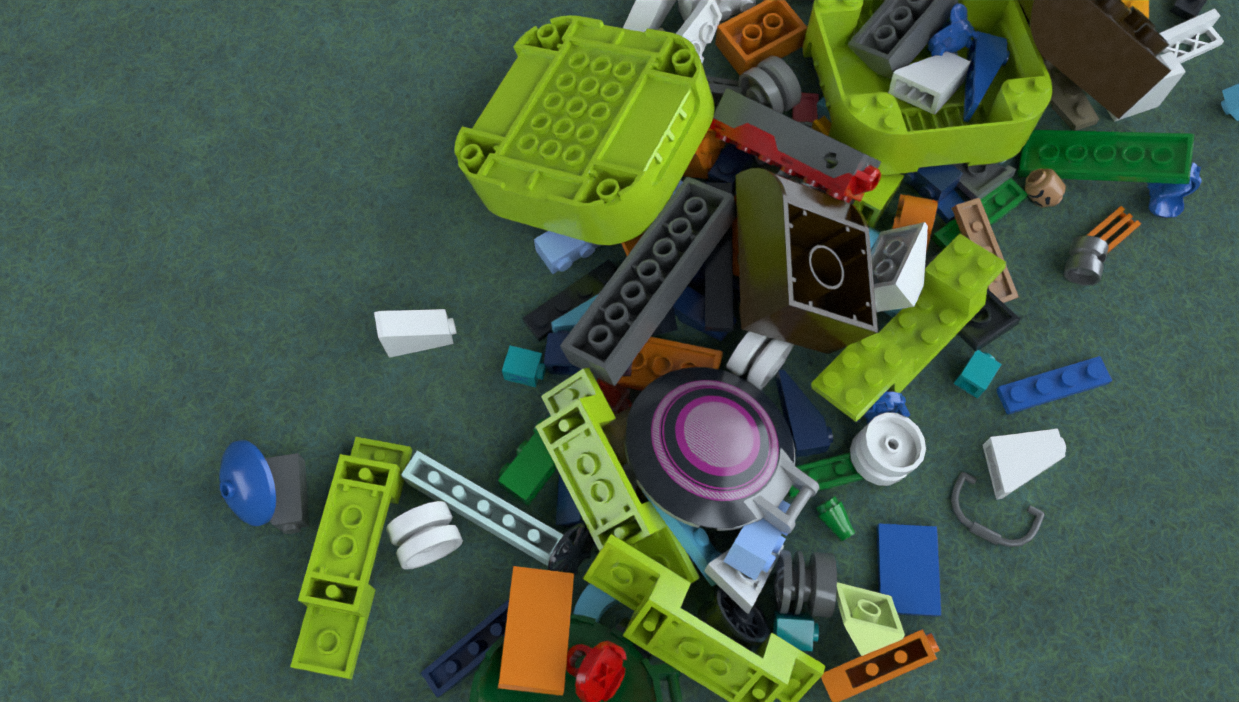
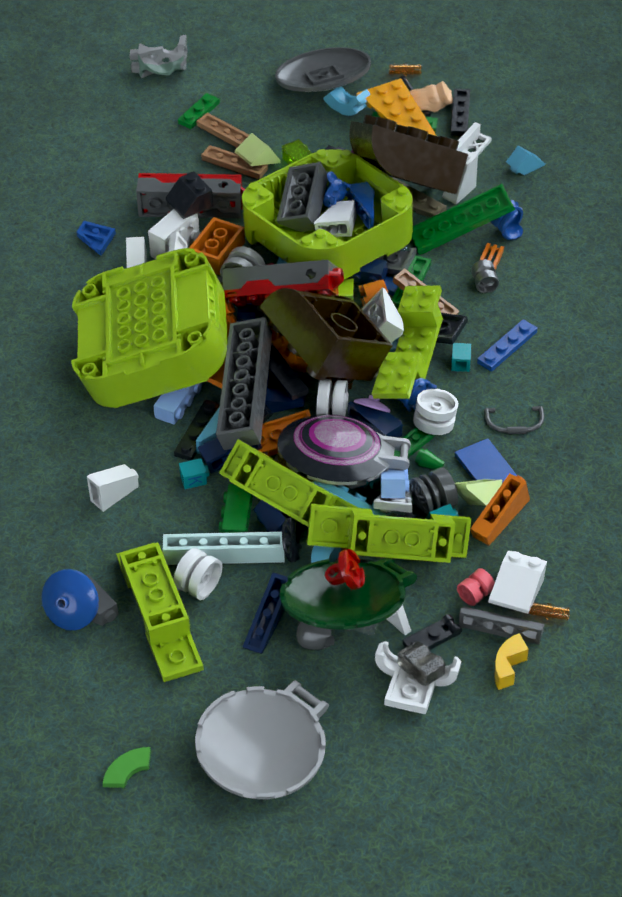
camera: 30 degrees left, 20 degrees down
(537, 631) = (300, 572): orange tile -> none
(801, 385) = (372, 403): none -> lavender dish
(1021, 457) = (511, 384): white slope -> none
(1044, 187) = (438, 251): medium nougat head -> none

